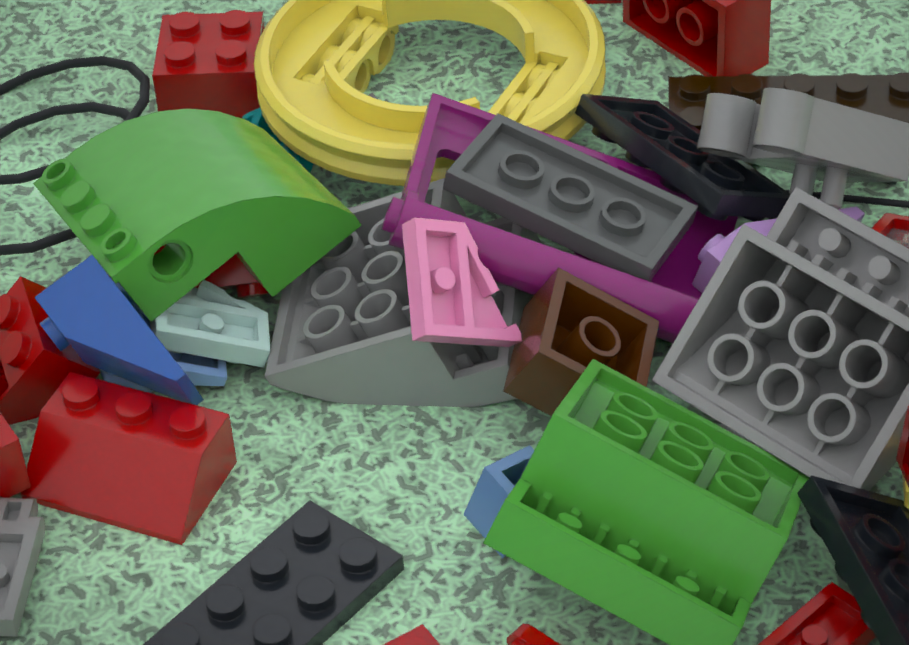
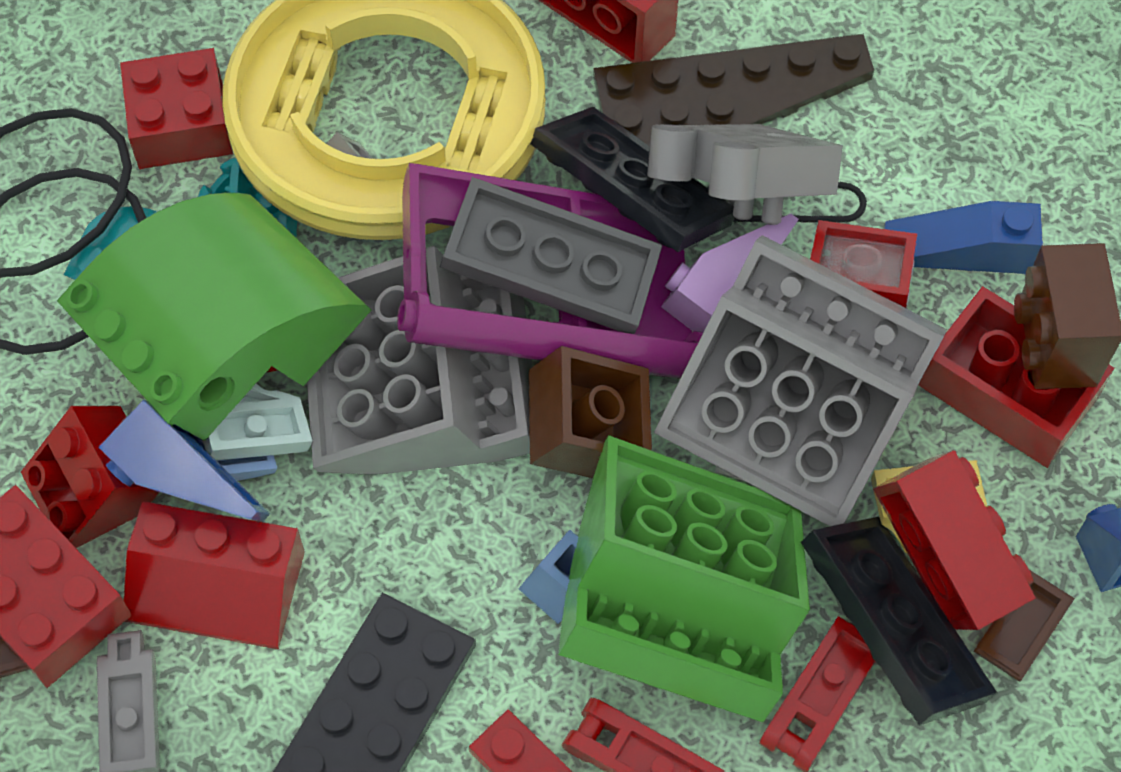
camera: 15 degrees left, 20 degrees up
(451, 287) = (473, 385): bright pink wing -> none

